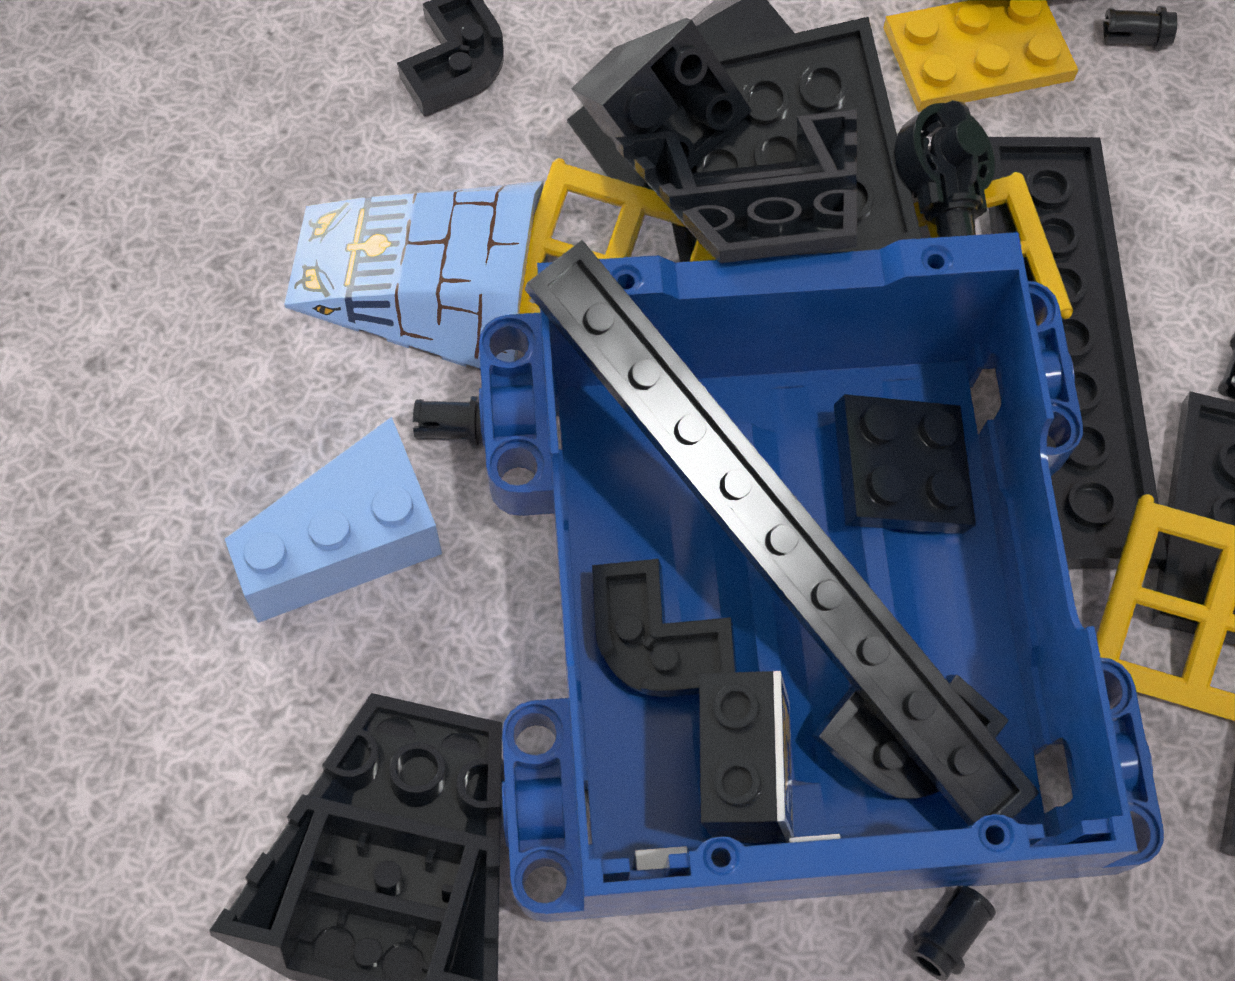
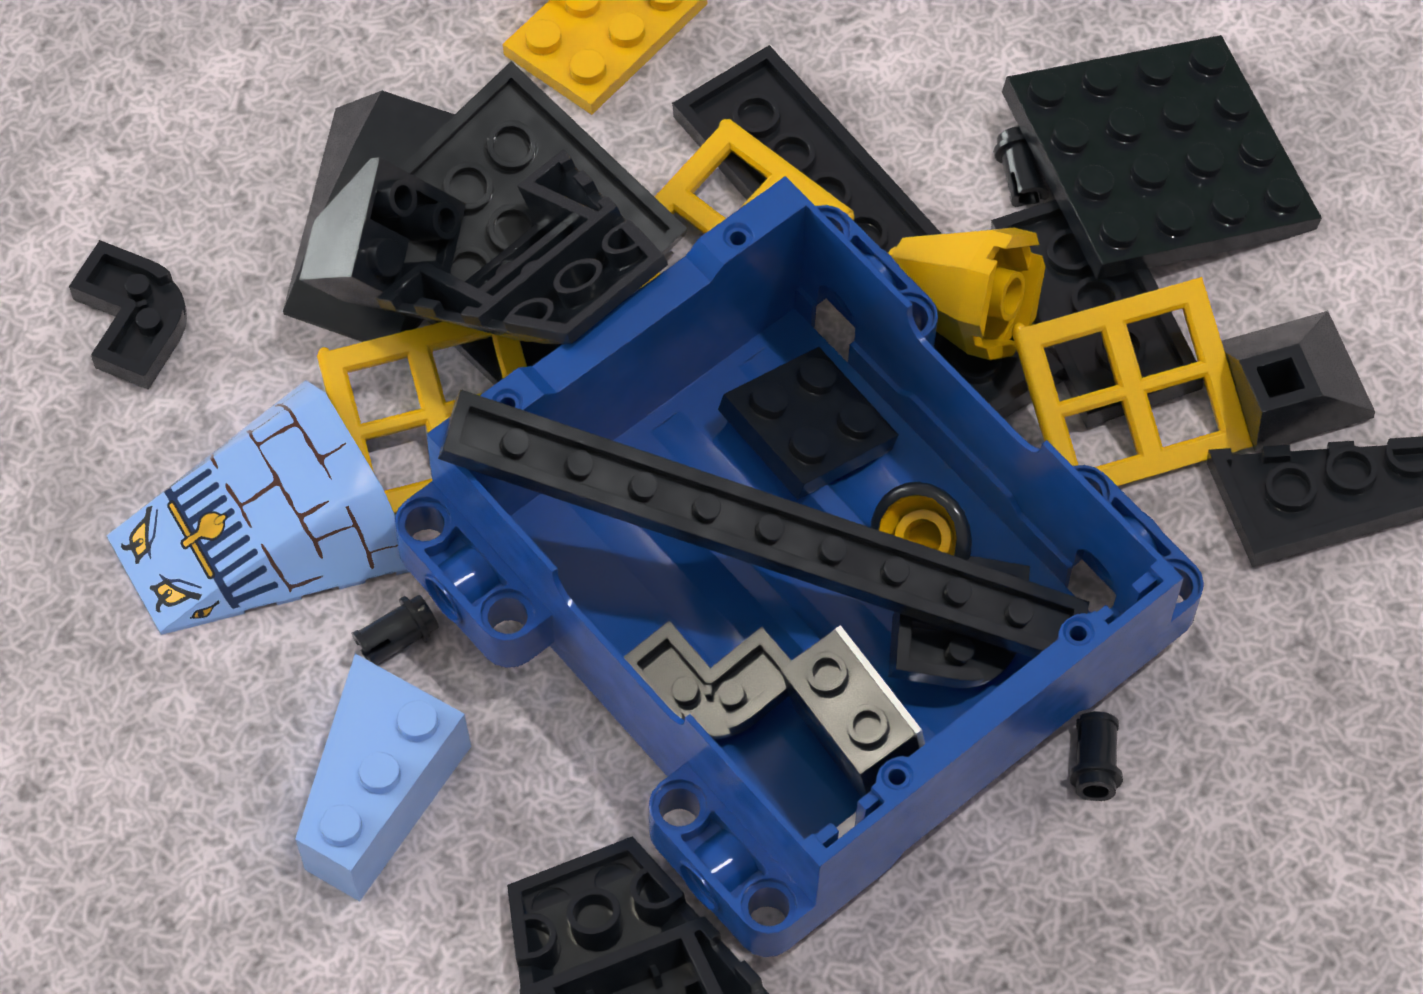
camera: 30 degrees left, 5 degrees down
(938, 619) = (926, 517): none -> hat
(951, 171) = (668, 155): black pin -> none
(1136, 438) = (978, 283): none -> yellow cone

